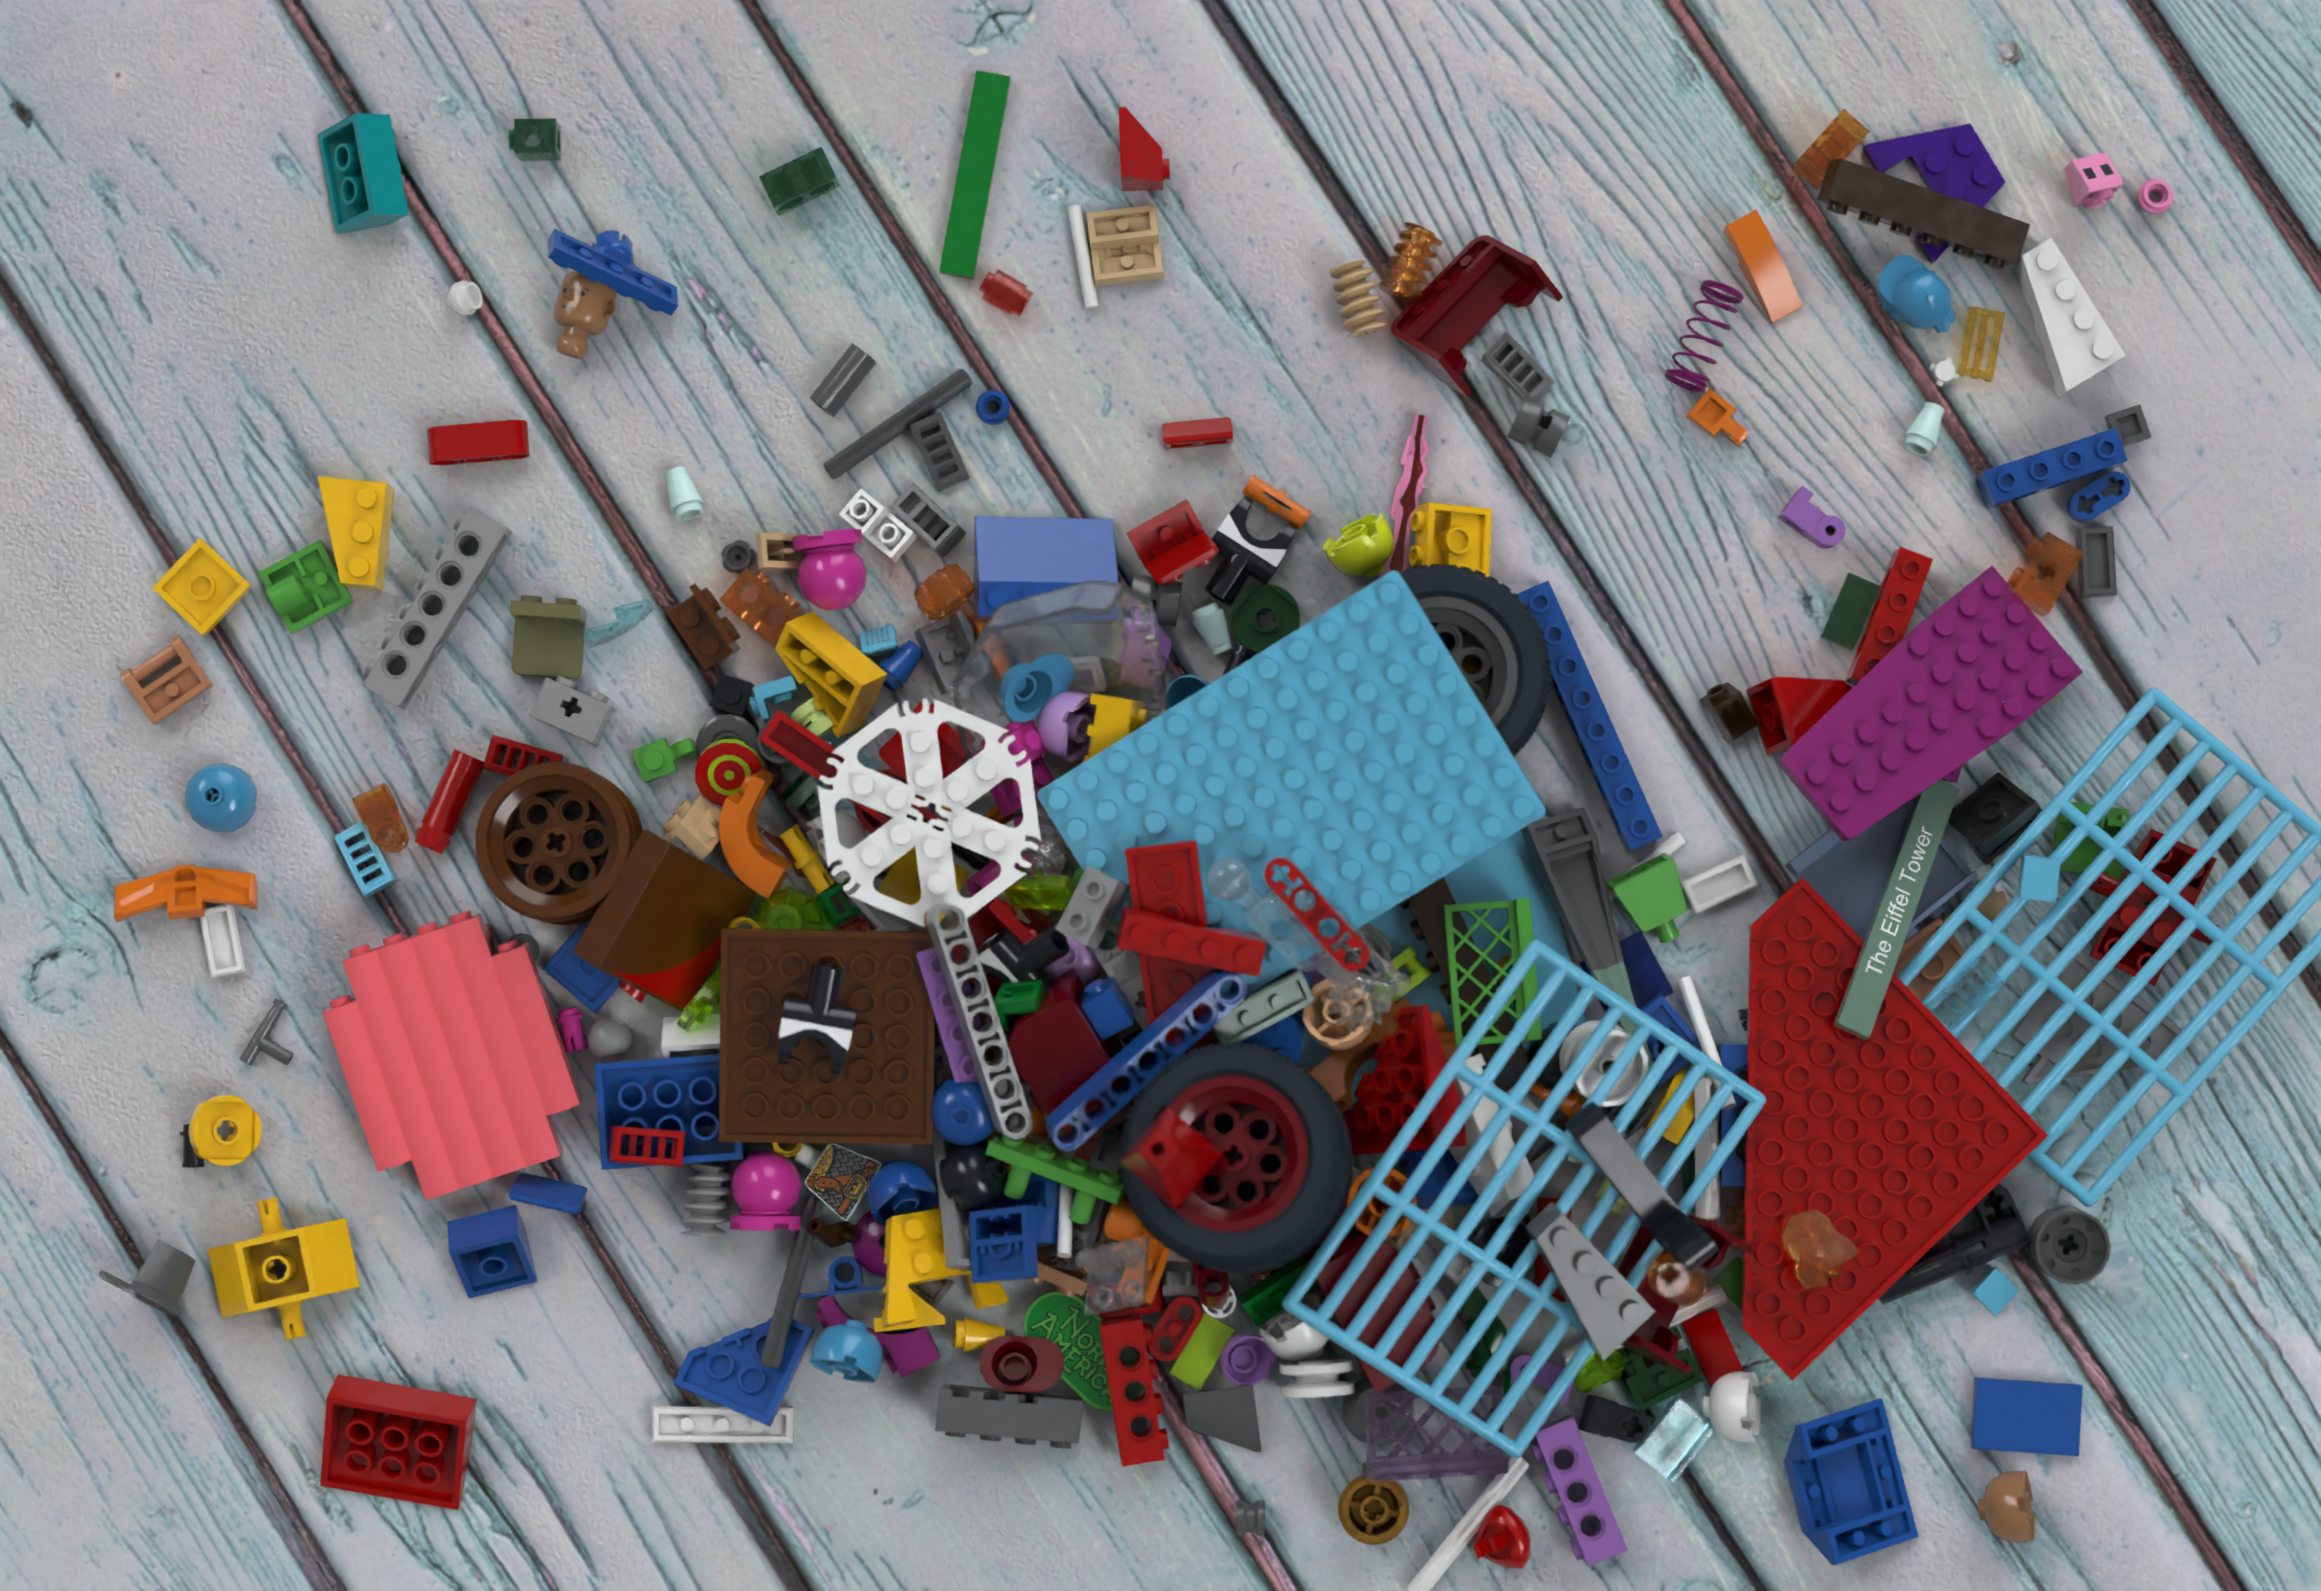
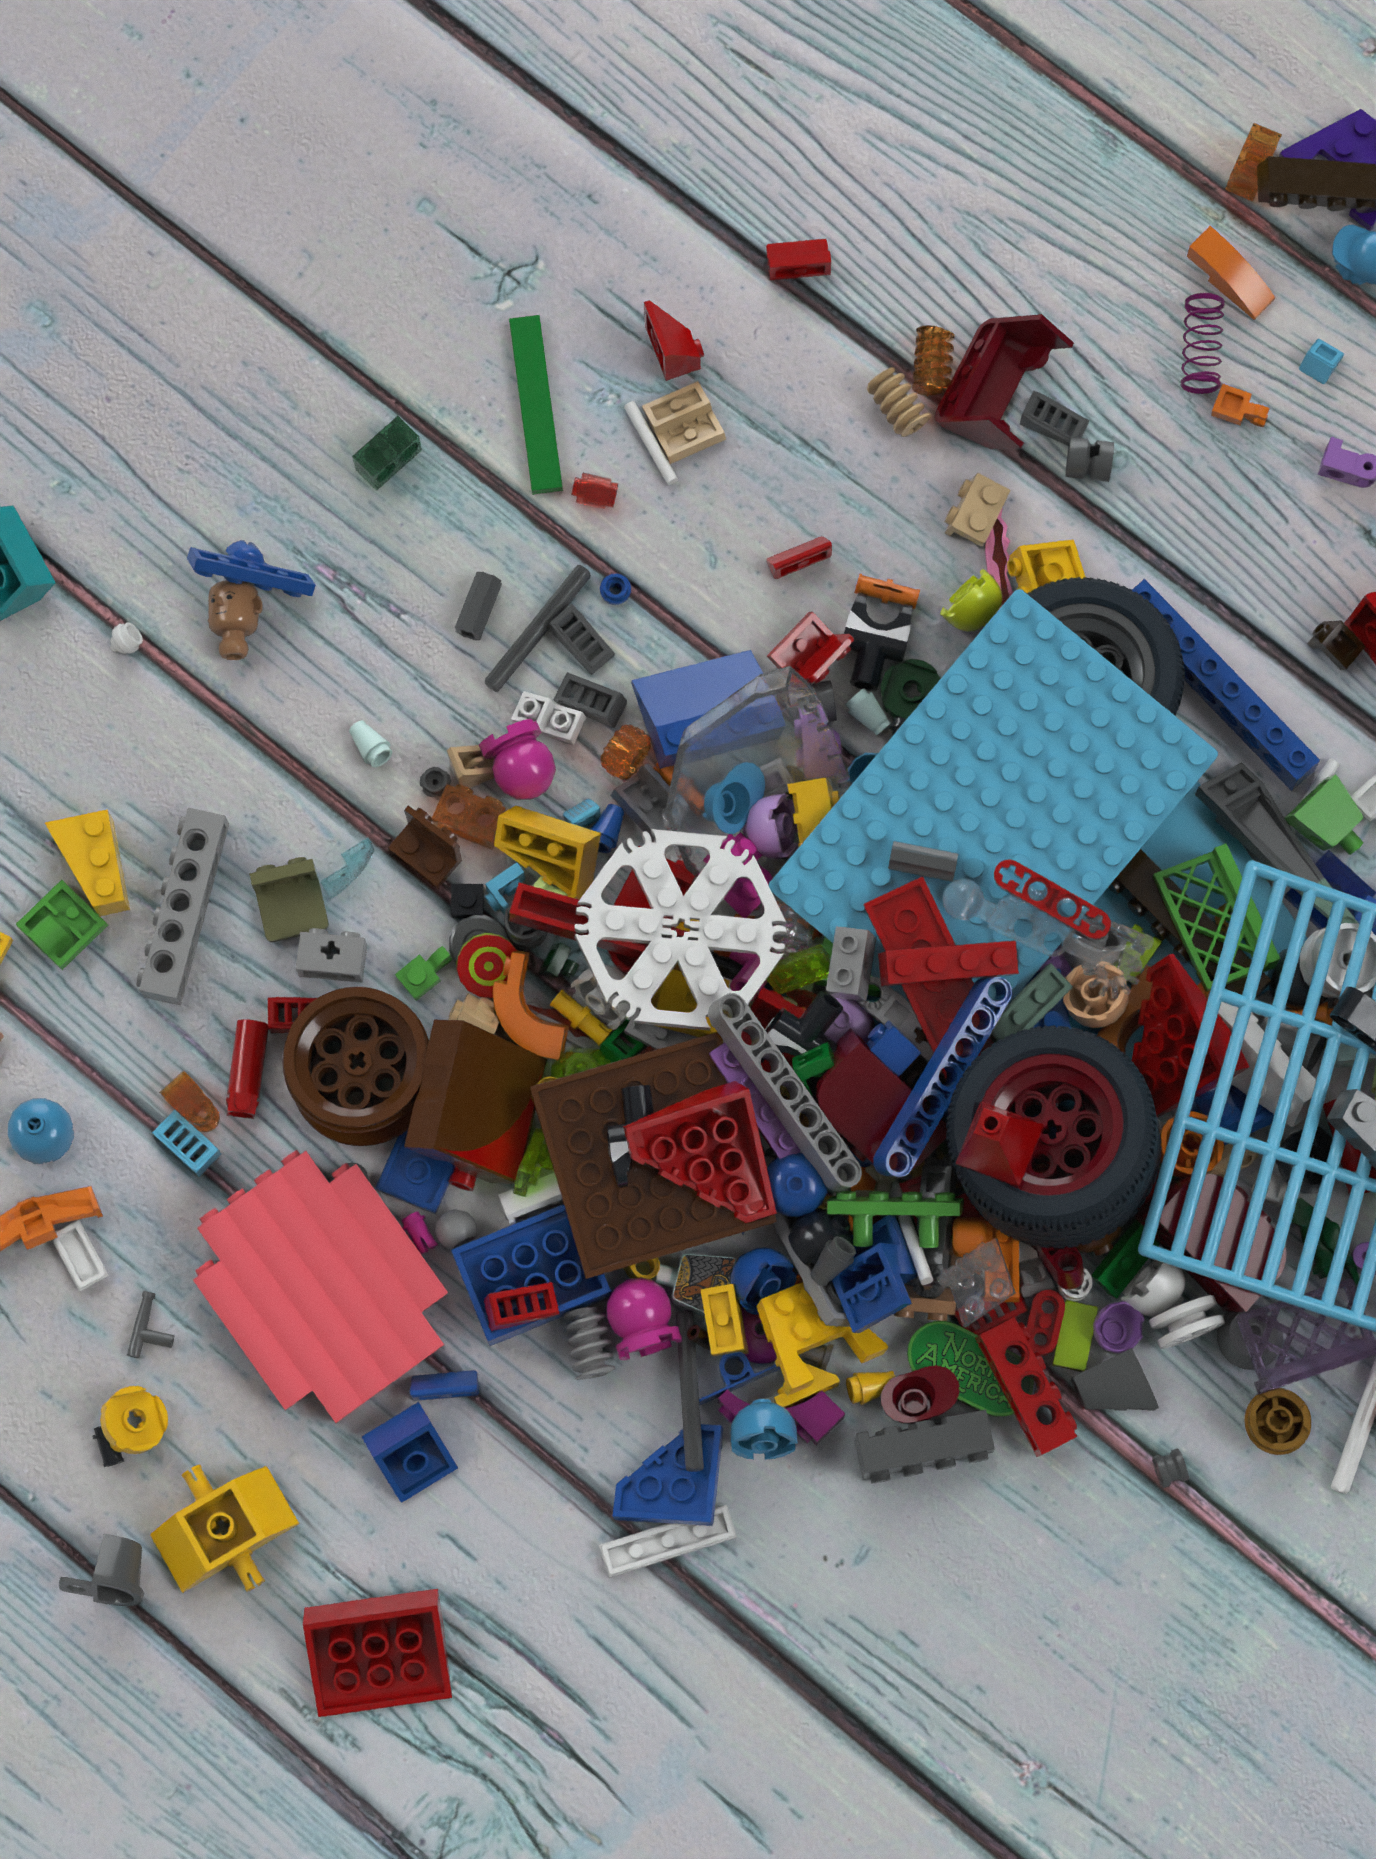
camera: 20 degrees left, 10 degrees down
(478, 442) = (176, 755): red beam -> none
(549, 147) = (157, 497): clear green brick -> none
(848, 1225) = (724, 1320): none -> yellow panel
(882, 1052) = (710, 1147): none -> red slope
(975, 1204) = (833, 1259): none -> dark grey cone
(1201, 825) = (923, 861): none -> dark grey axle
(1307, 100) = (798, 259): none -> red panel
(1400, 444) = (977, 509): none -> tan bracket
(1825, 393) = (1321, 361): none -> medium azure slope

